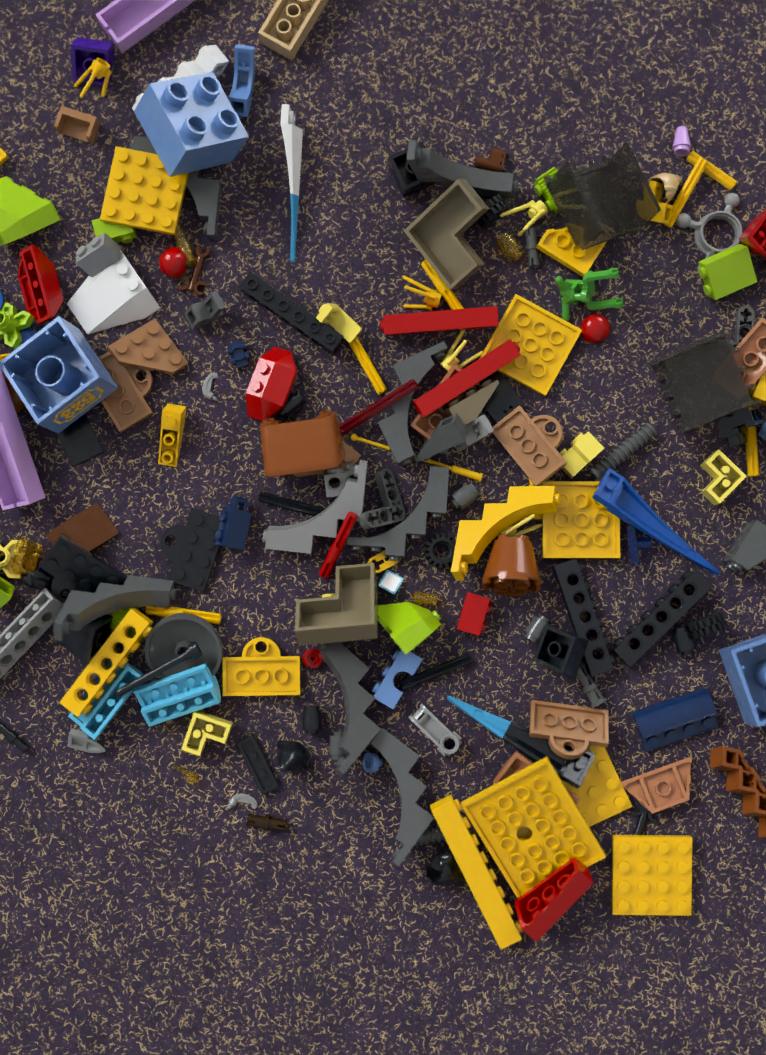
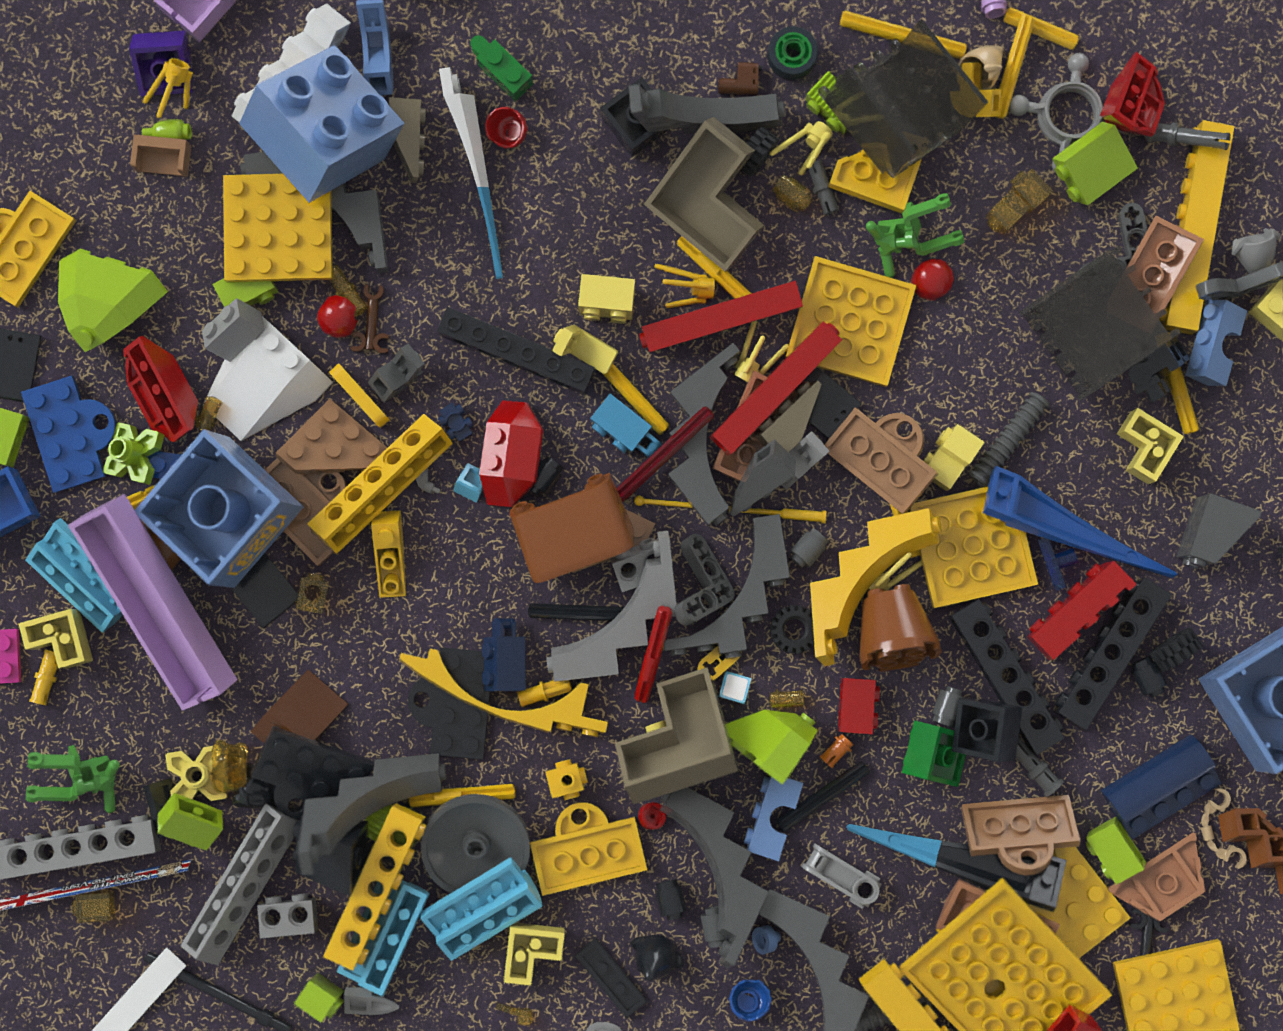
camera: 20 degrees left, 0 degrees up
(42, 674) = (289, 923): none -> light grey brick
(51, 731) = (320, 998): none -> lime piece
(69, 309) = (208, 413): none -> clear yellow pin
(88, 107) = (169, 129): none -> lime plant
(104, 456) = (313, 606): none -> clear yellow brick
(175, 320) = (359, 395): none -> yellow beam
(175, 383) = (380, 483): none -> yellow brick
(192, 651) = (488, 845): black piece -> none
(237, 398) = (469, 483): none -> medium azure slope
(250, 150) = (409, 139): none -> dark tan slope
(250, 619) = (556, 783): none -> yellow brick
(256, 554) = (543, 691): none -> yellow axle
(267, 572) = (564, 712): none -> yellow slope
(317, 152) = (502, 119): none -> red hair
(327, 115) = (501, 67): none -> green brick
(347, 806) = (746, 1007): none -> blue hair
(354, 382) = (623, 426): none -> dark azure brick
(362, 290) = (606, 298): none -> light yellow brick
(452, 642) = (836, 750): none -> orange pin
(517, 660) = (931, 755): none -> green slope
(534, 139) = (797, 39): none -> wheel
(605, 149) = (893, 31): none -> yellow axle
(632, 757) = (1115, 851): none -> lime piece
(646, 581) = (1079, 608): none -> red wedge
(657, 293) = (1006, 212): none -> clear yellow brick
(677, 281) = (1031, 189): none -> clear yellow brick
(701, 759) = (1207, 831): none -> tan piece

